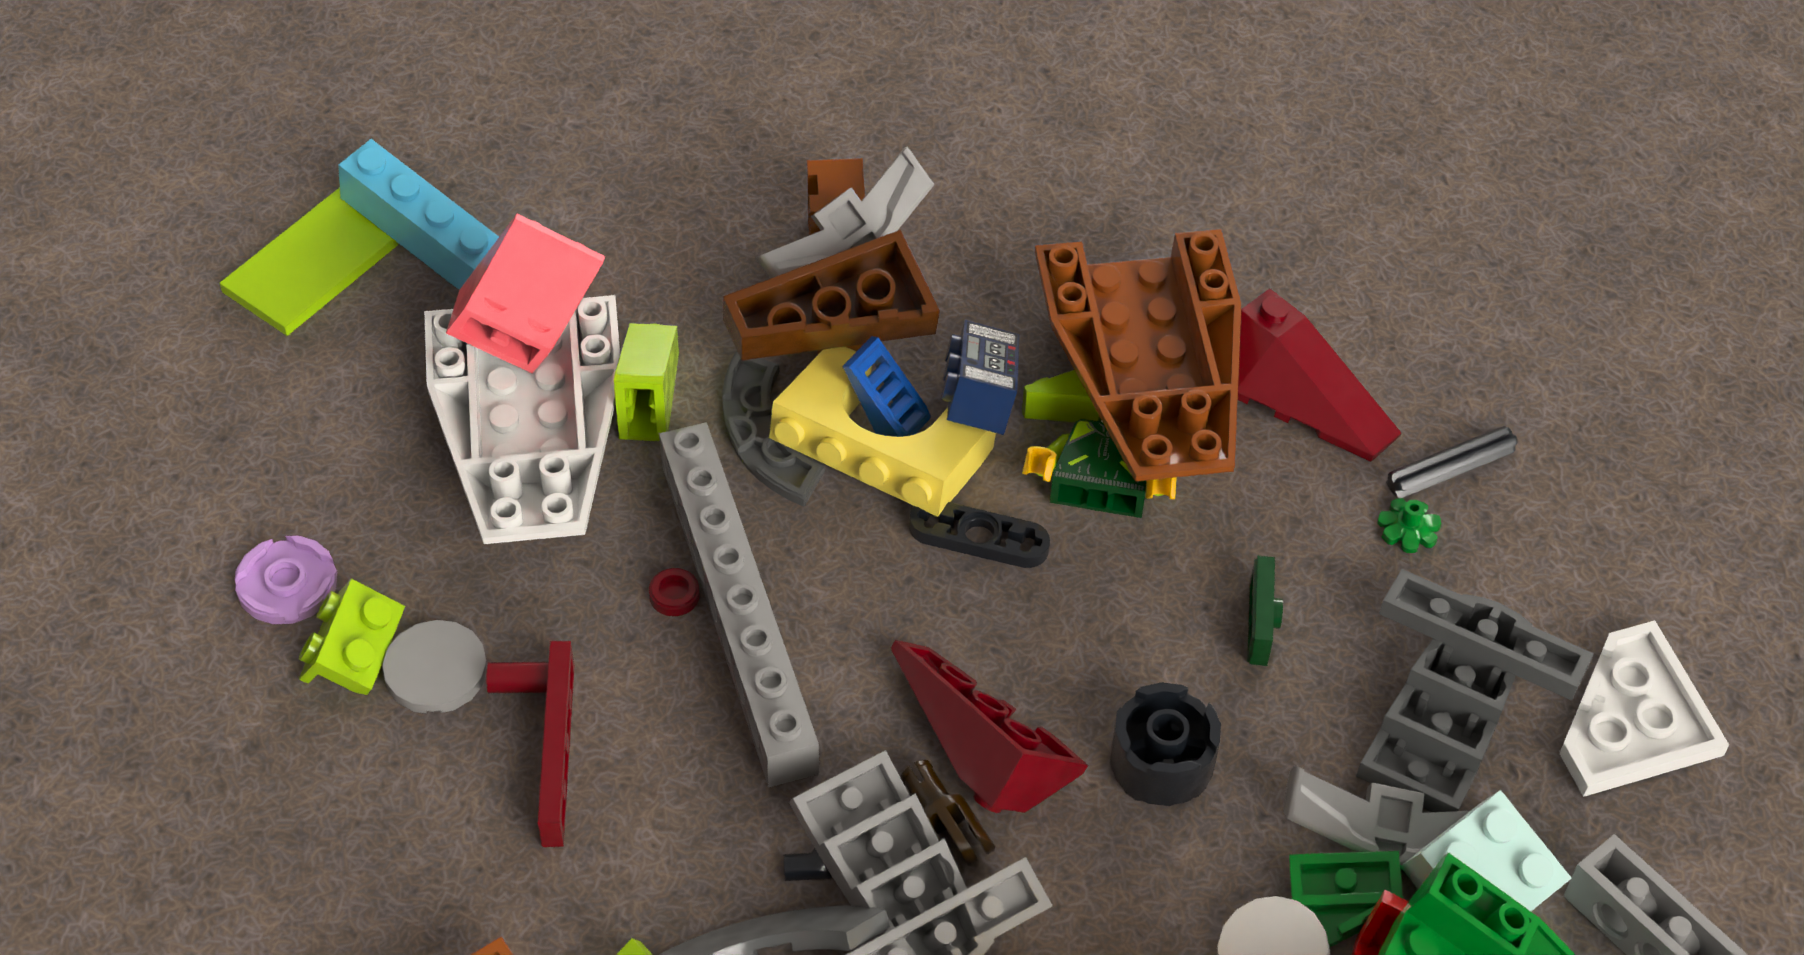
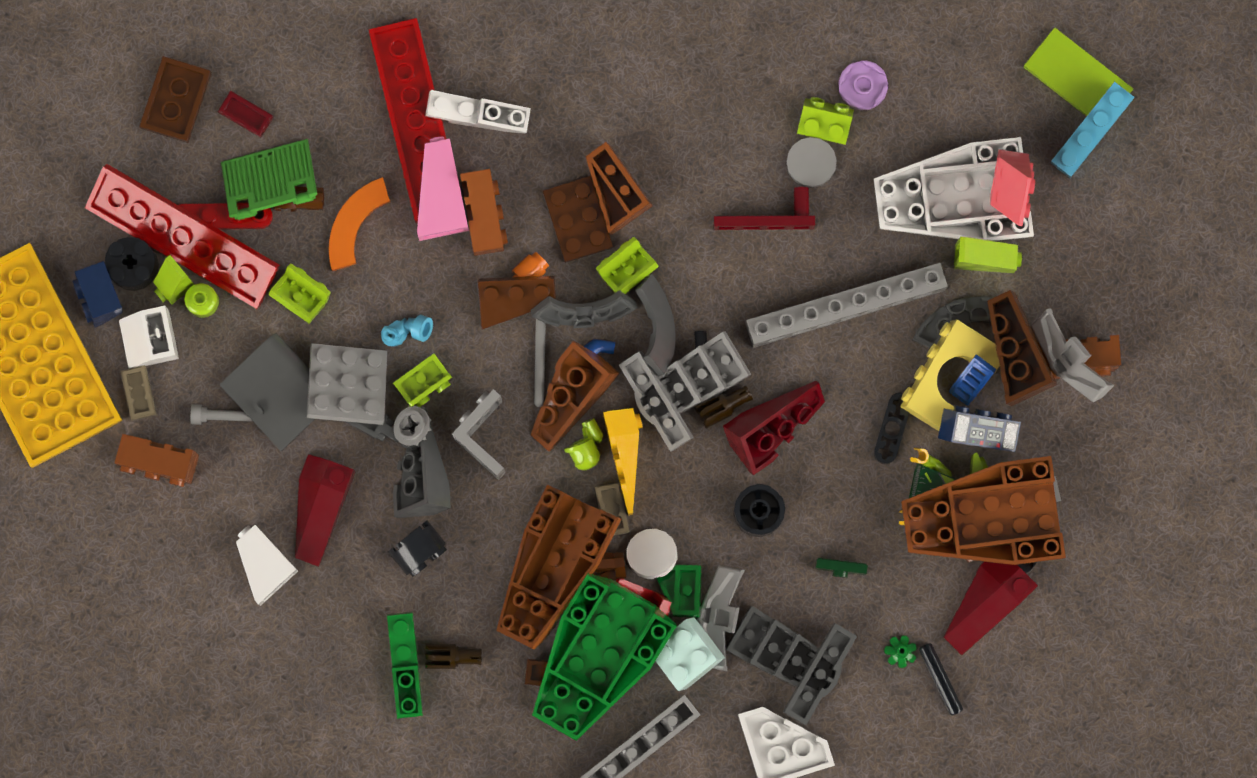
camera: 90 degrees right, 30 degrees up
(674, 592) = (856, 275): dark red tile -> none

